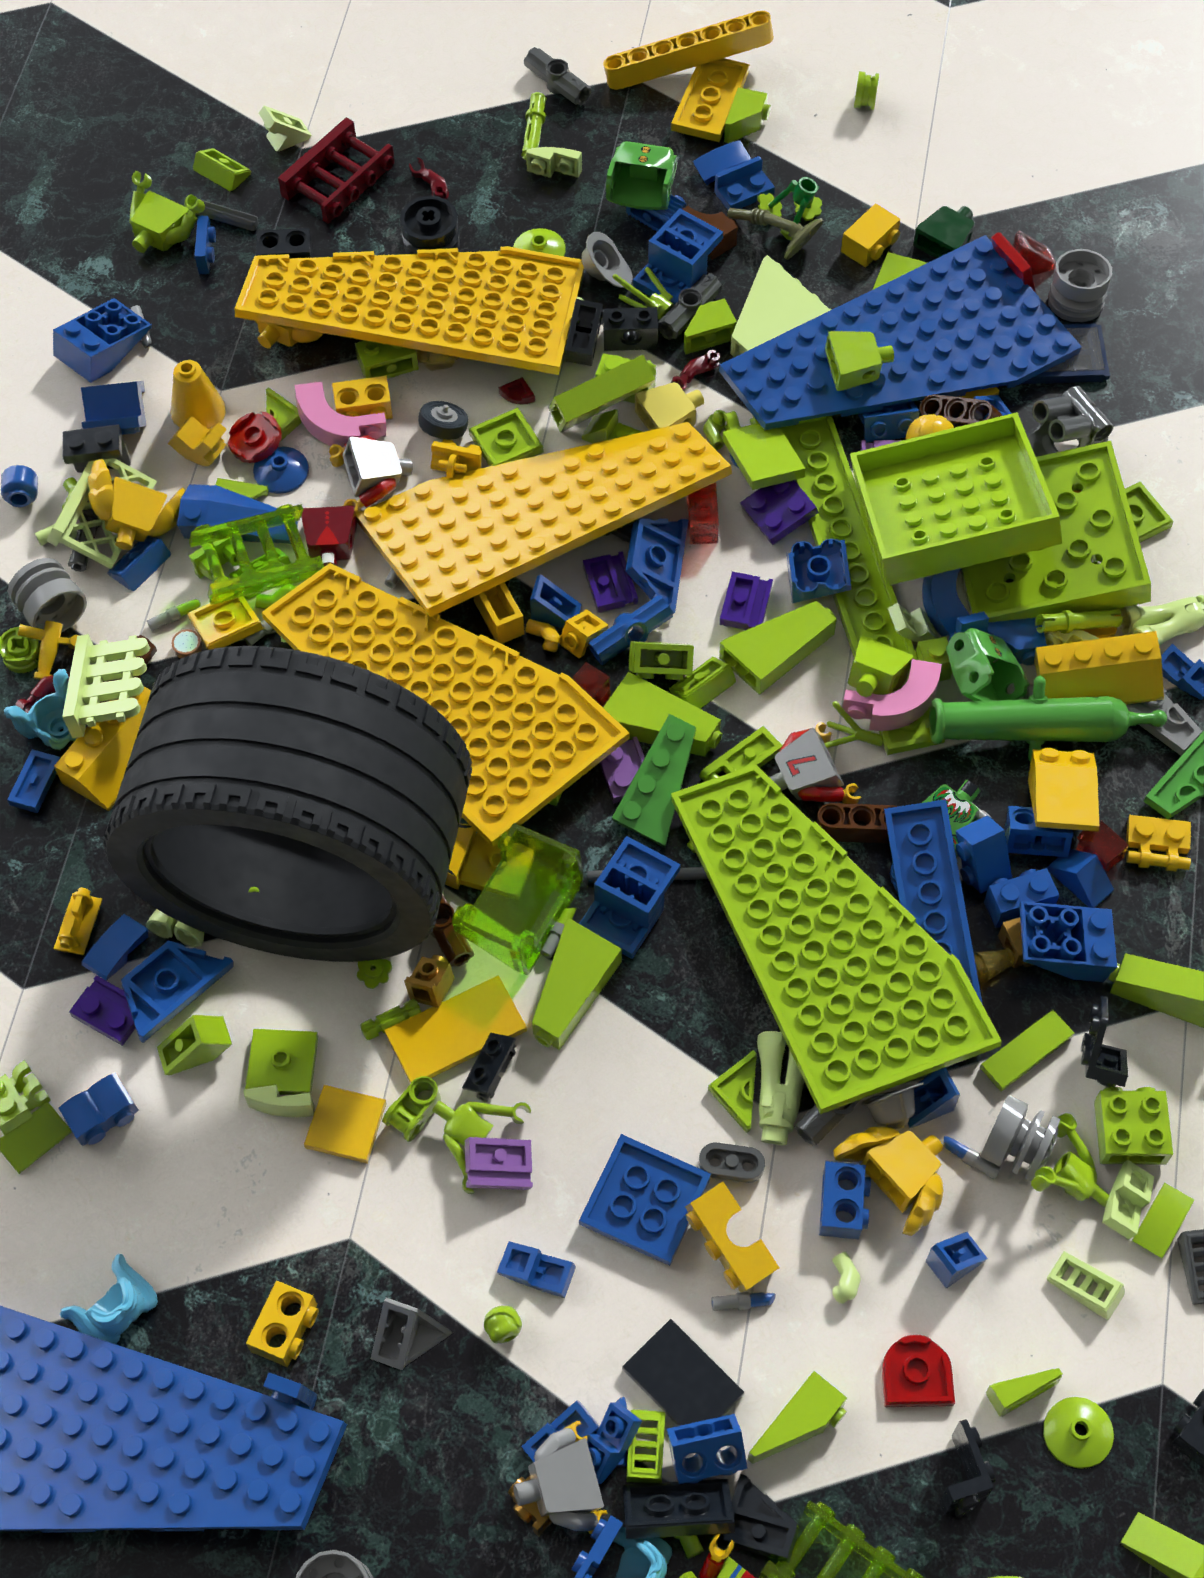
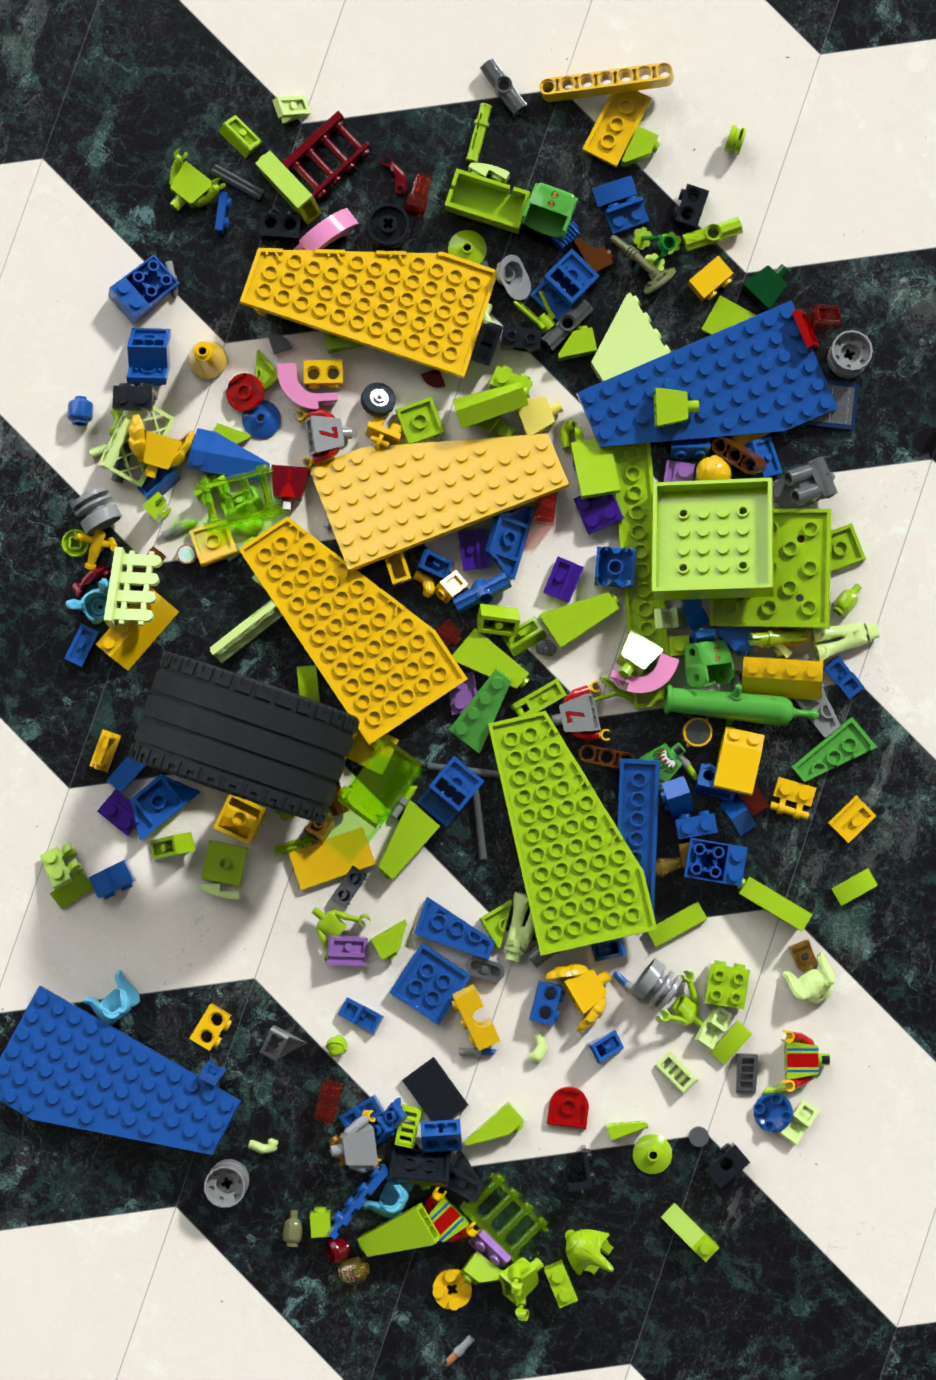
camera: 10 degrees right, 25 degrees up
(134, 582) = (156, 506): none -> lime hinge
(197, 442) = (205, 392): yellow brick -> none
(292, 205) = (288, 187): none -> lime slope
(295, 376) = (279, 343): none -> dark grey tile
(301, 979) = (241, 819): none -> yellow brick
(345, 1124) = (258, 908): yellow tile -> none
(351, 235) = (328, 230): none -> bright pink arch
(395, 1524) = (261, 1148): none -> yellowish green arm
(410, 1113) = (299, 908): lime piece -> none
(466, 194) = (417, 199): none -> clear red piece
(500, 1418) = (328, 1100): none -> clear red brick
(555, 186) = (486, 201): none -> lime piece
(566, 1138) = (390, 940): none -> lime slope
(666, 1110) = (448, 929): none -> blue wing
(682, 947) = (479, 825): none -> dark grey bar
(697, 366) = (562, 376): dark red arm -> none
(738, 691) = (546, 647): none -> dark grey piece
(826, 164) = (693, 208): none -> black brick
(861, 189) = (701, 238): none -> lime piece
(893, 1107) = (588, 954): light grey piece -> none
(991, 770) = (697, 732): none -> pearl dark grey piece
(1101, 1061) = (721, 940): black bracket -> none
(1150, 1387) = (698, 1136): none -> dark grey tile
(1163, 574) = (846, 600): none -> lime plant

